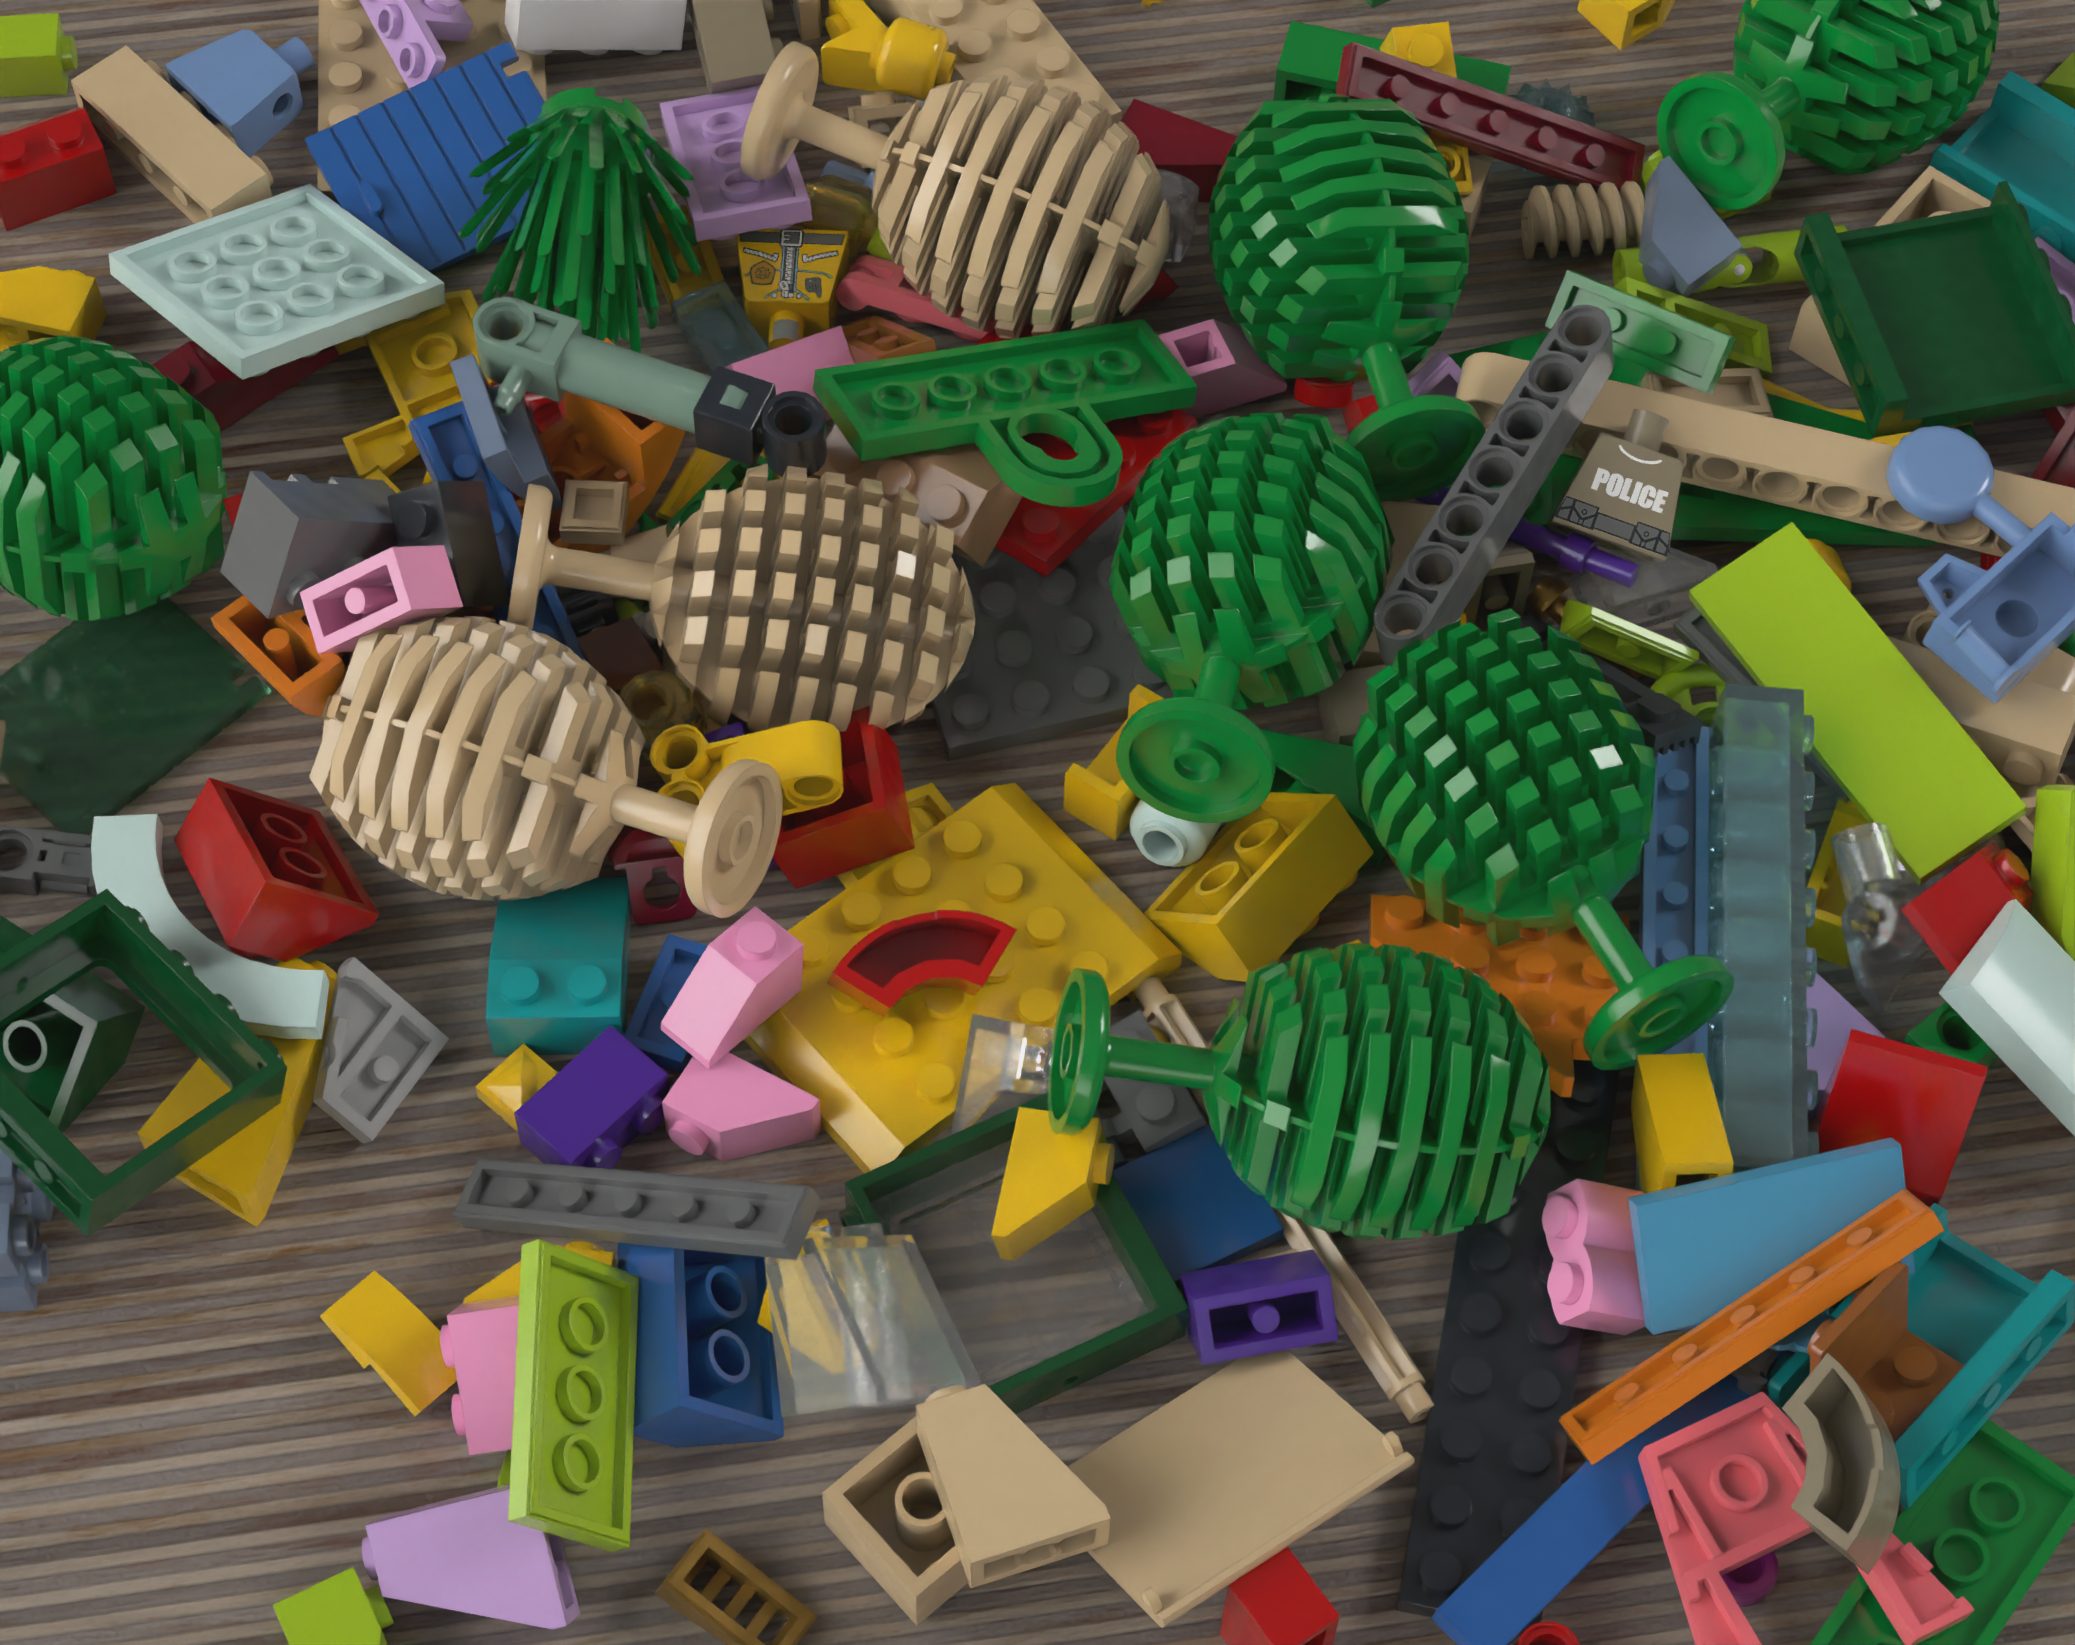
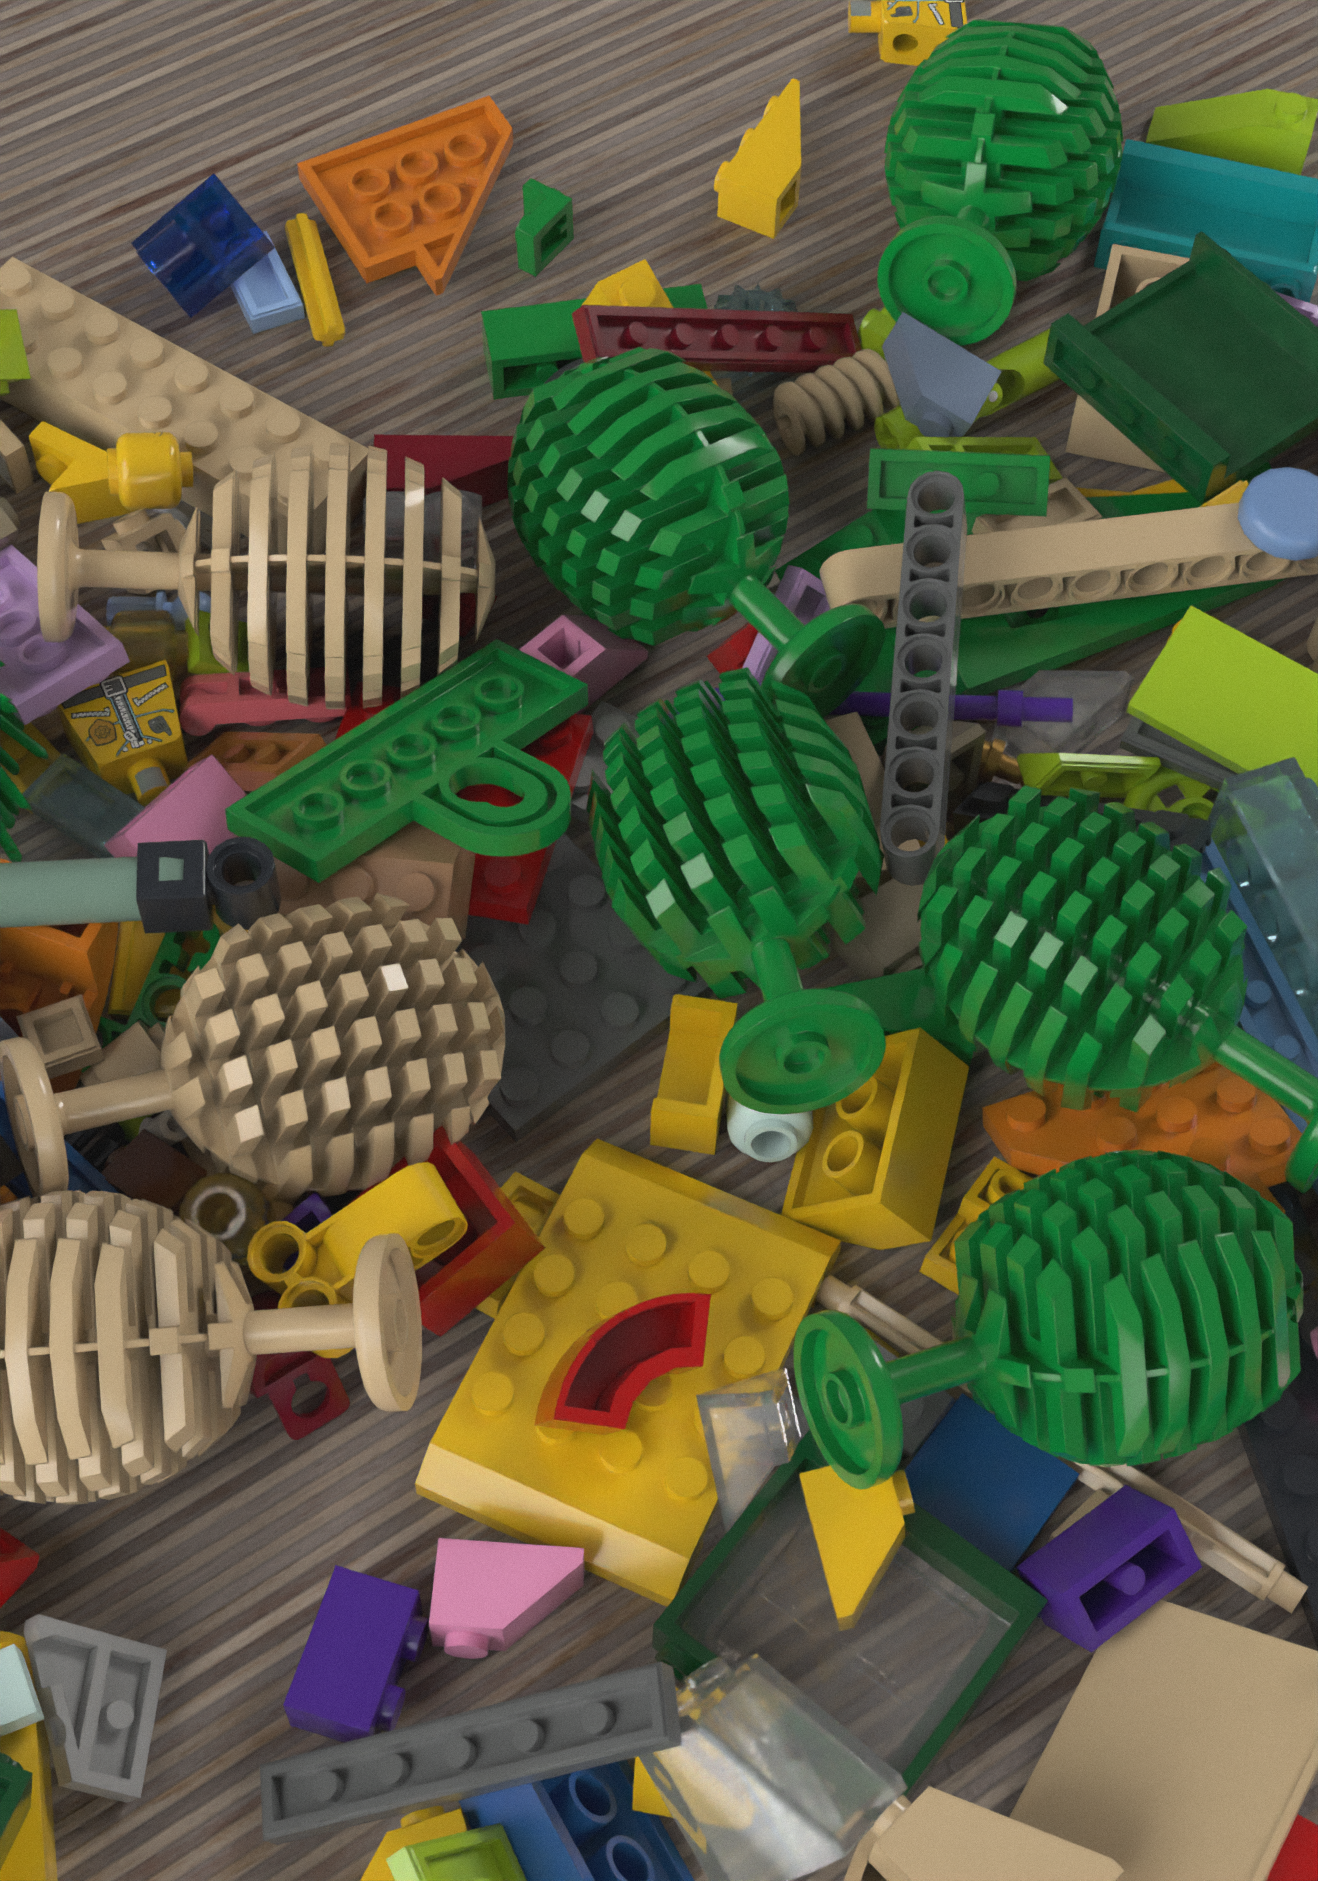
camera: 25 degrees left, 0 degrees up
(514, 1083) = (263, 1667): yellow tile -> none
(559, 968) = (249, 1525): teal slope -> none
(666, 980) = (381, 1507): blue plate -> none
(735, 987) = (448, 1473): bright pink slope -> none
(1324, 392) = (686, 646): red tile -> none
(1624, 492) = (1028, 635): dark tan torso -> none

